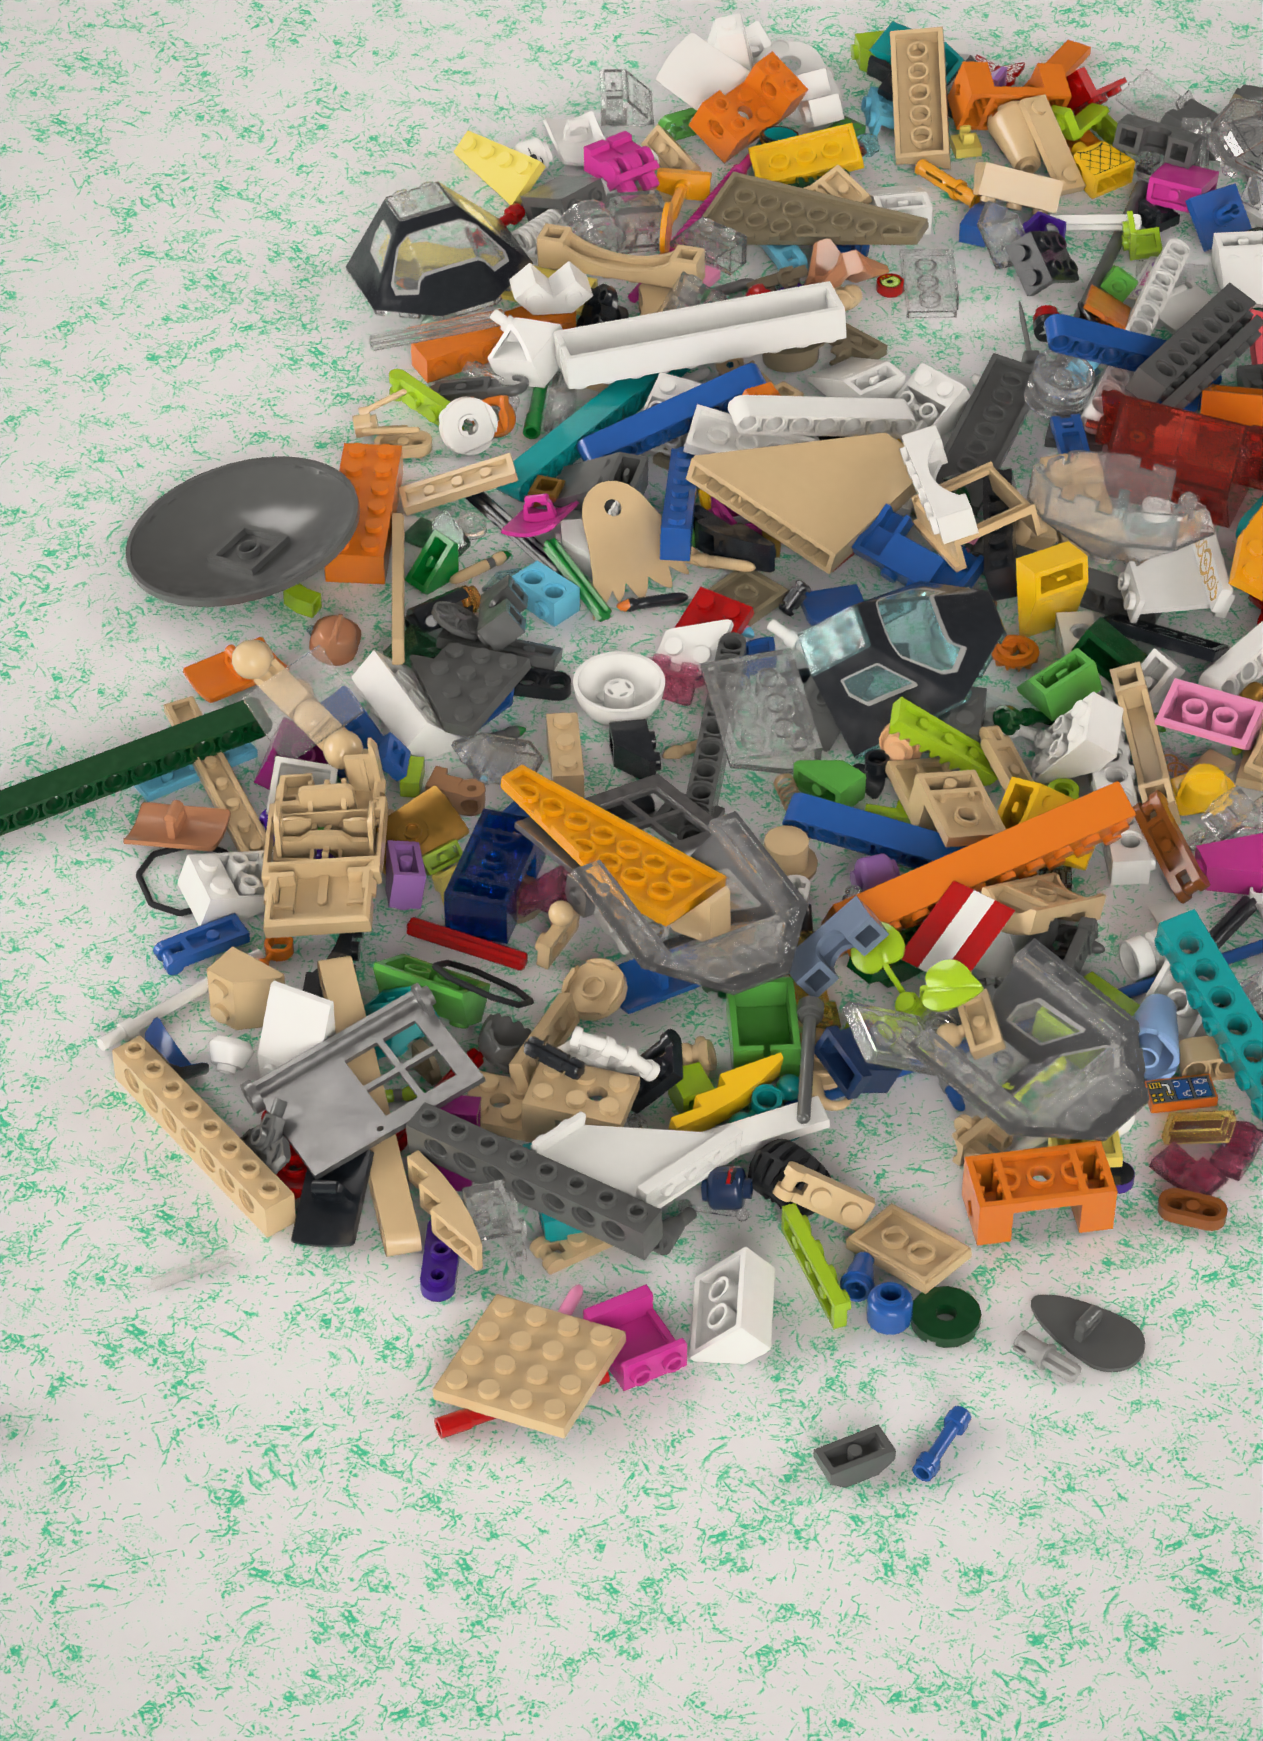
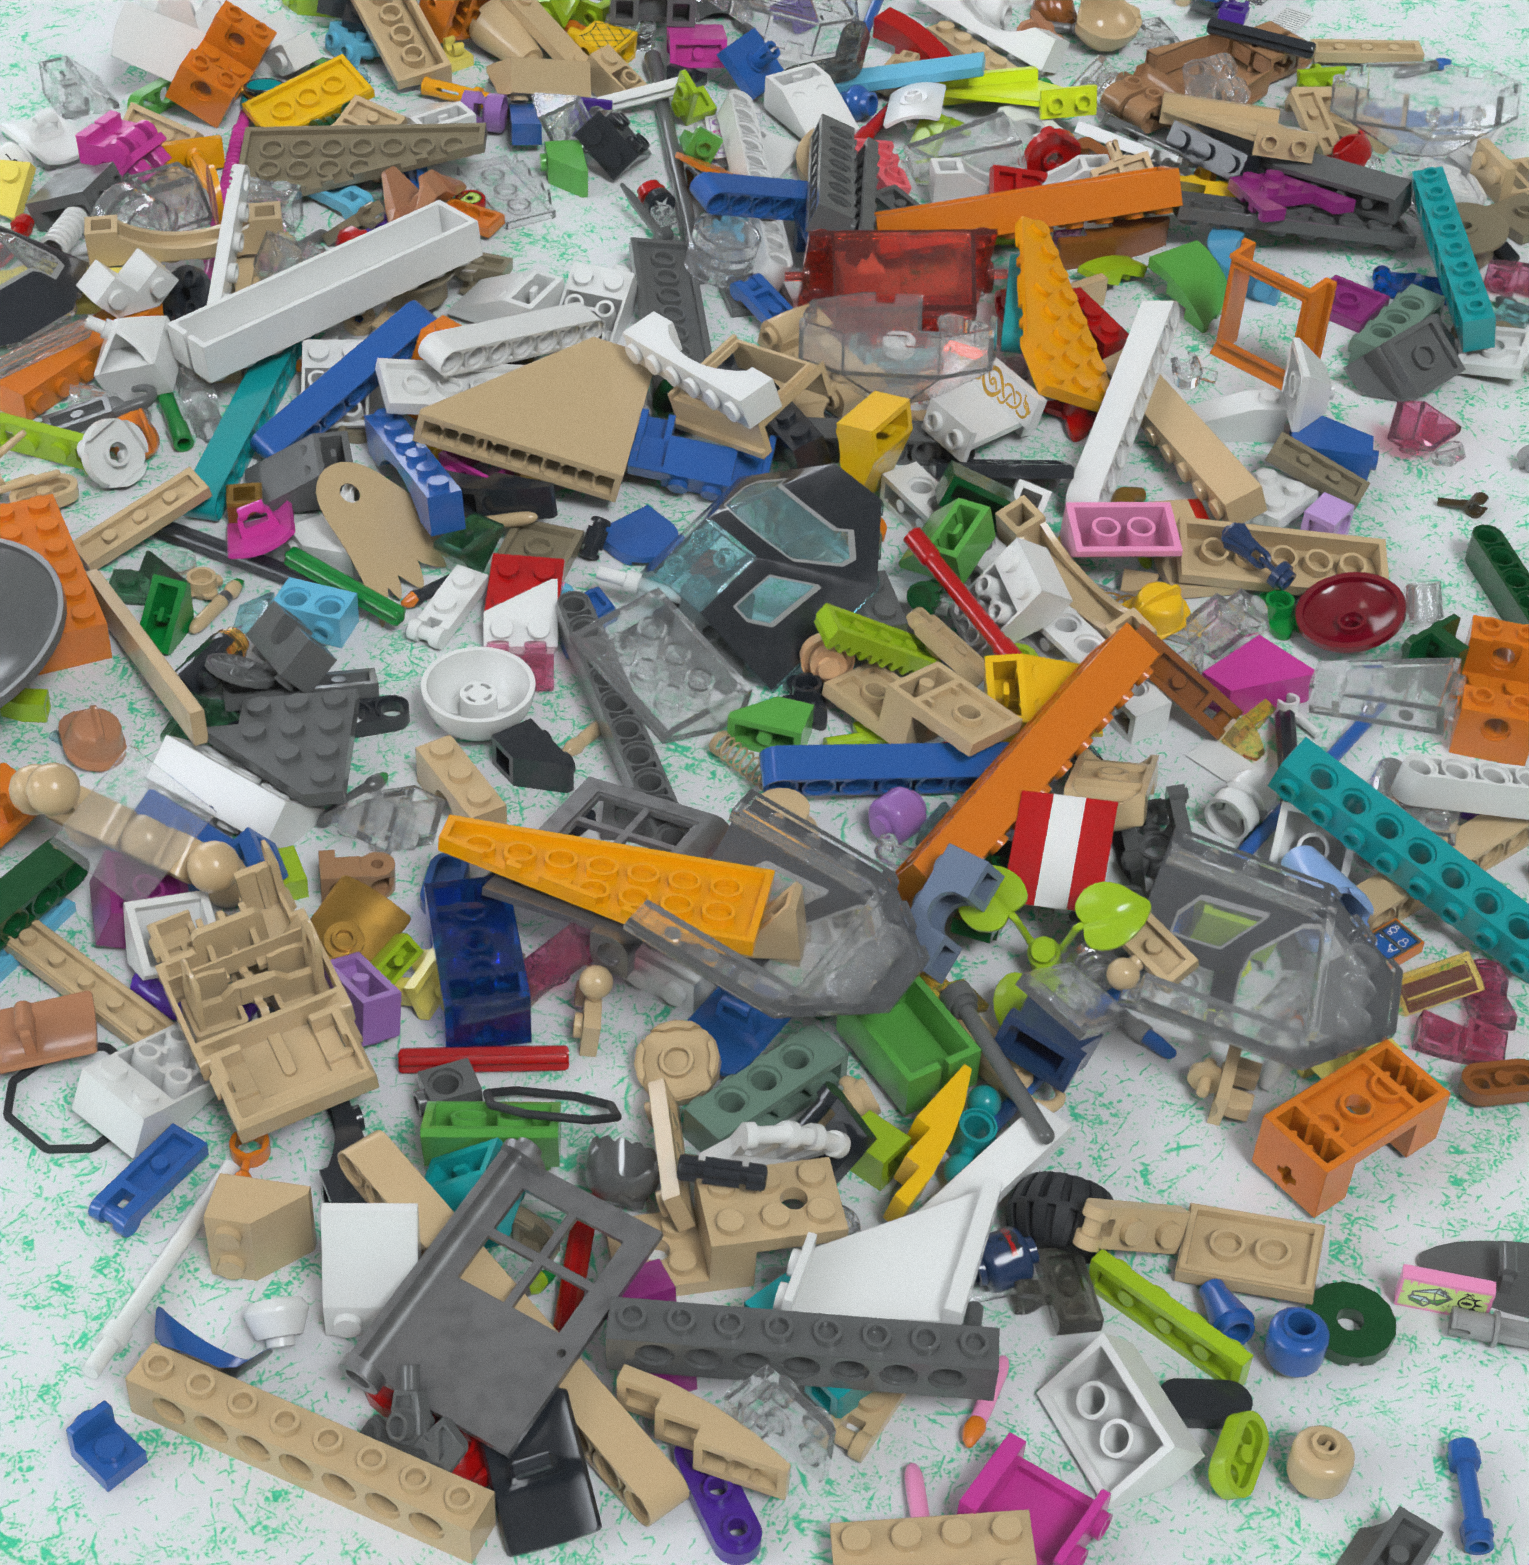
camera: 30 degrees left, 0 degrees up
(85, 1088) = (104, 1446): none -> blue bracket
(427, 947) = (447, 1083): none -> dark grey brick
(478, 547) = (204, 583): none -> tan plate
(644, 1023) = (768, 1089): none -> sand green brick
(647, 619) = (448, 607): none -> white plate
(649, 267) = (230, 236): none -> white plate
(657, 1268) = (976, 1425): none -> piece
(690, 575) = (472, 545): none -> clear green slope
(756, 1224) = (1065, 1289): none -> clear smoke plate
(795, 1360) = (1239, 1455): none -> lime plate
(804, 1325) = (1206, 1401): none -> black tile
(847, 1382) = (1320, 1462): none -> tan head
(881, 300) = (488, 220): none -> orange plate
(950, 202) = (494, 109): none -> medium lavender wheel
(990, 272) = (565, 166): none -> bright green slope
(1021, 1316) = (1441, 1290): none -> tile
(1024, 687) = (930, 557): none -> red piece
(1039, 340) = (663, 215): none -> clear plate
(1085, 195) = (611, 72): none -> tan slope
(1209, 898) = (1244, 734): none -> clear yellow tile

